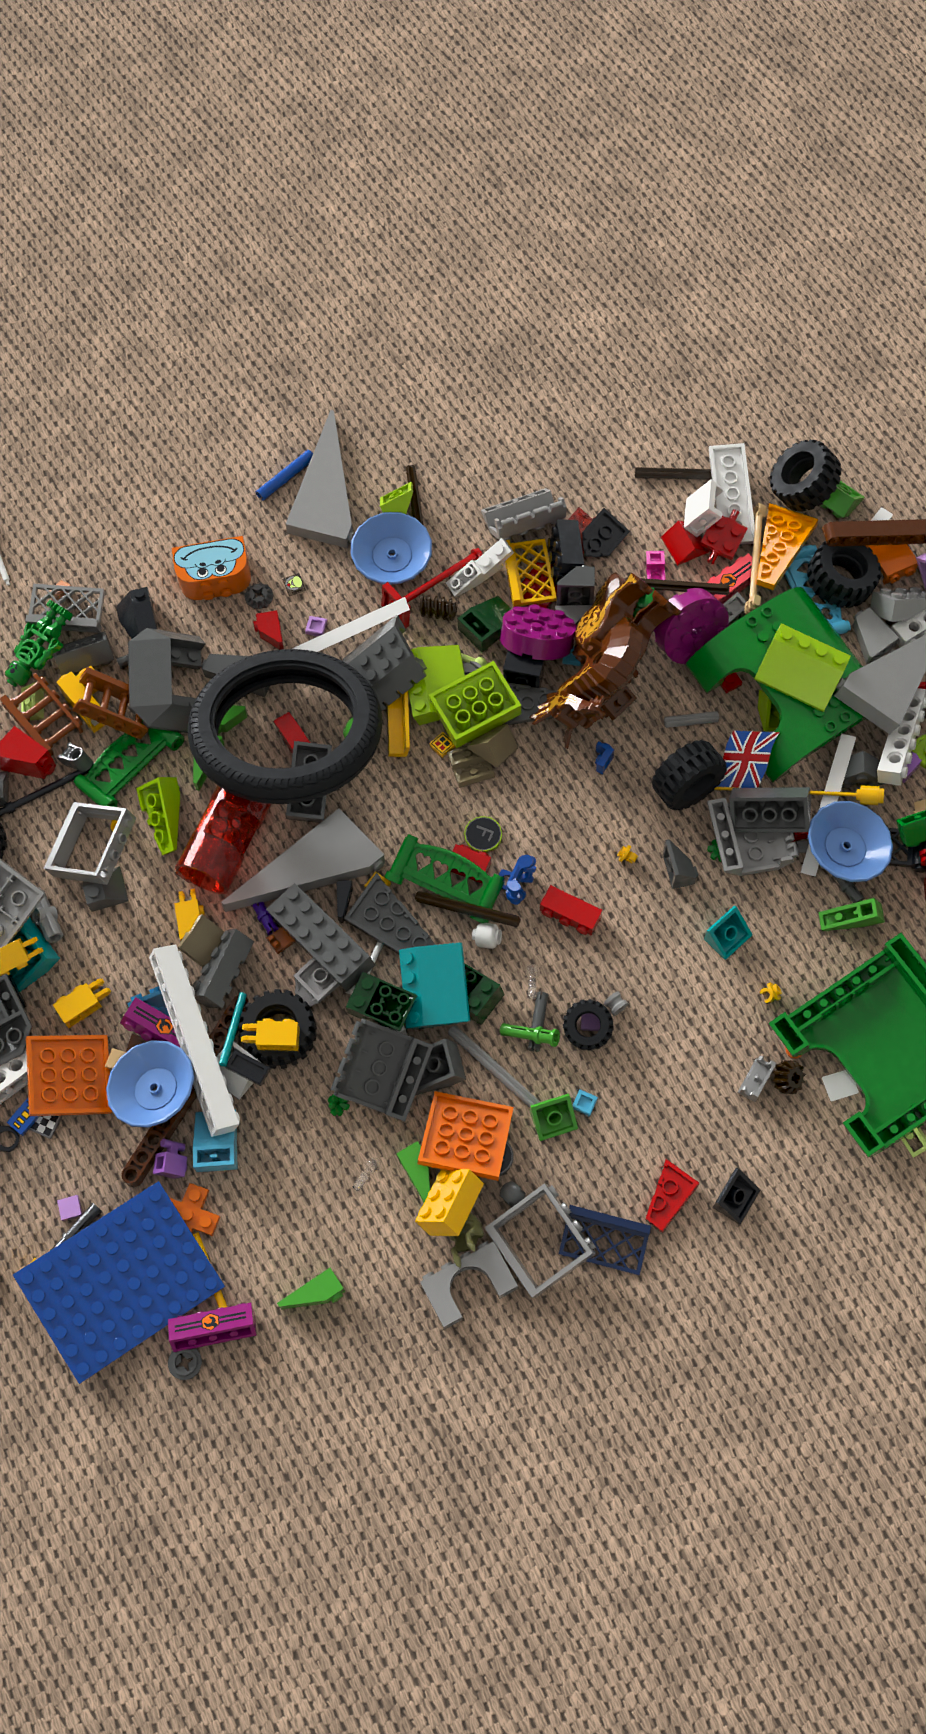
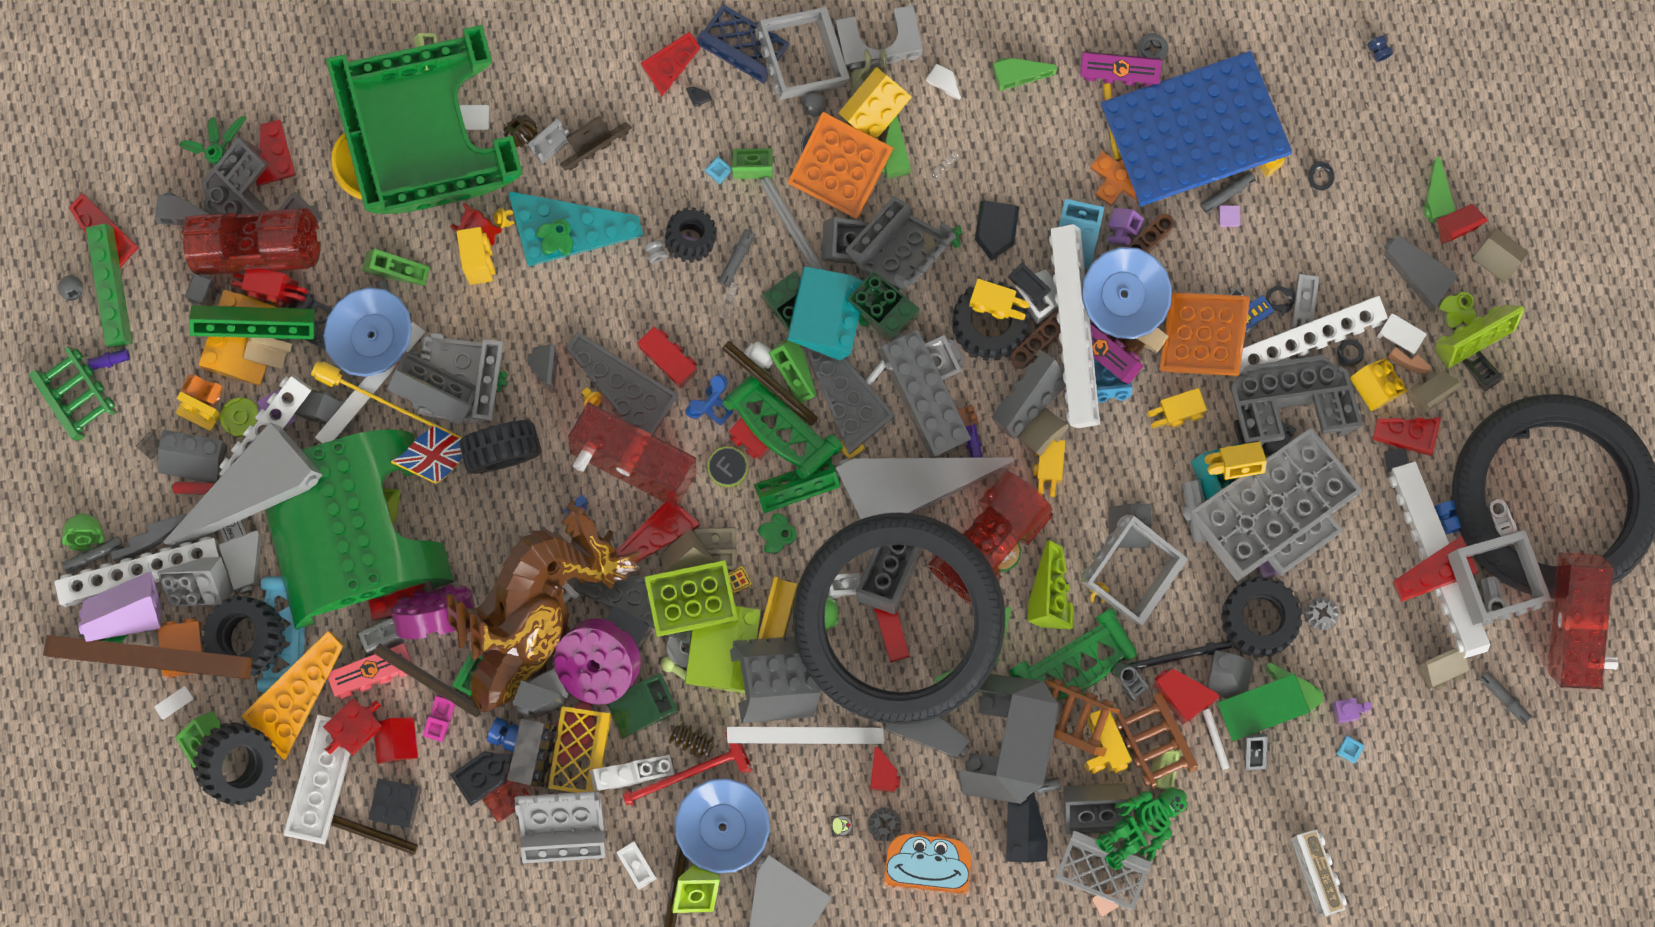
camera: 165 degrees left, 10 degrees up
(232, 1029) = (1034, 325): teal bar -> none
(298, 1127) = (996, 227): none -> black tile
(316, 626) = (831, 765): lavender tile -> none
(344, 893) = (888, 442): black slope -> none
(389, 1261) = (945, 80): none -> white slope
(416, 829) = (797, 489): none -> green fence
(423, 791) = (774, 532): none -> green plate
(450, 931) = (794, 368): none -> bright green slope
(452, 506) = (636, 865): none -> white panel
(523, 762) = (658, 531): none -> red wing
(538, 1034) = (739, 239): bright green pin -> none
(569, 805) = (631, 455): none -> clear red piece
(594, 872) = (629, 390): none -> dark grey wing
(601, 563) = (496, 731): none -> blue wheel
(630, 1171) = (698, 96): none -> black tile
(665, 495) = (395, 803): none -> black brick
(691, 719) = (469, 528): light grey axle -> none
(700, 508) = (363, 764): white panel -> none
(710, 1001) = (589, 225): none -> teal wing
(715, 982) = (553, 239): none -> green plate
(716, 1092) = (590, 139): none -> dark brown bracket
(728, 933) = (522, 288): teal slope -> none
(737, 1197) = (611, 44): black slope -> none
(754, 600) = (356, 622): tan hinge -> none
(781, 938) = (475, 255): none -> yellow brick
(795, 981) = (475, 218): none -> red hair
(802, 667) = (343, 508): lime slope -> none

